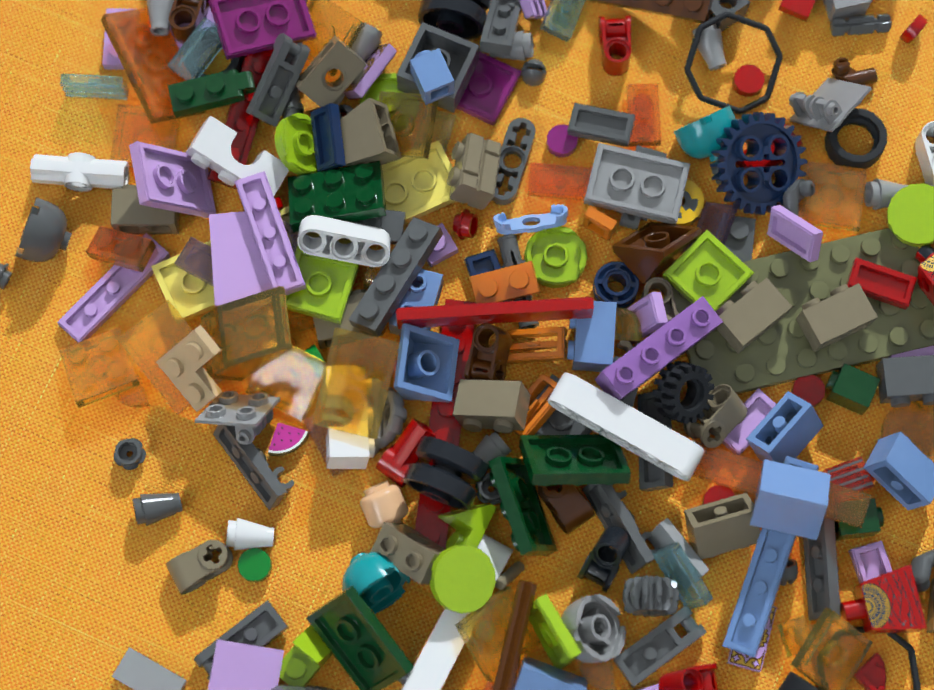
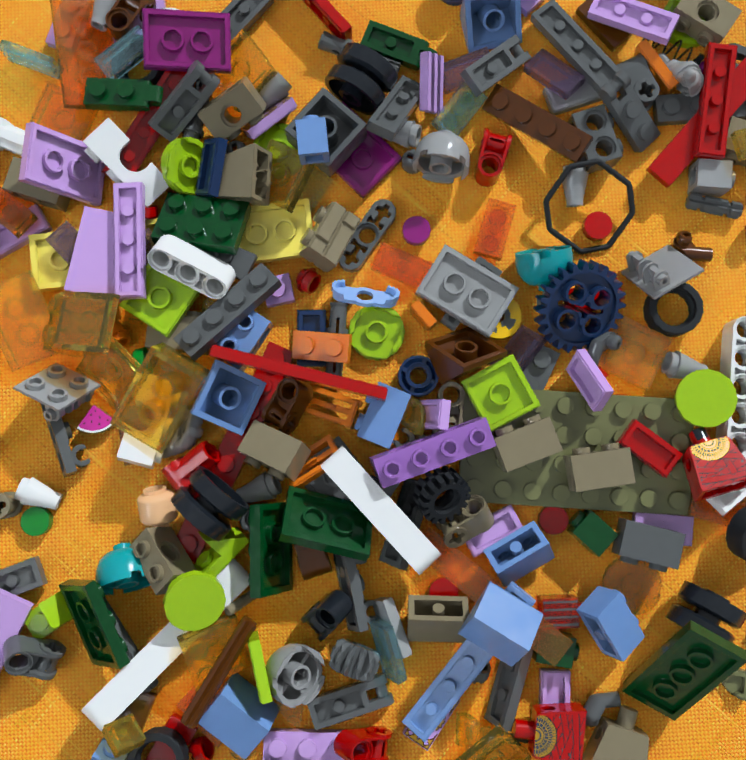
camera: 20 degrees right, 10 degrees up
(185, 369) = (23, 334): tan plate -> none
(565, 58) = (442, 157): none -> light grey cylinder
(601, 124) = (453, 228): dark grey tile -> none

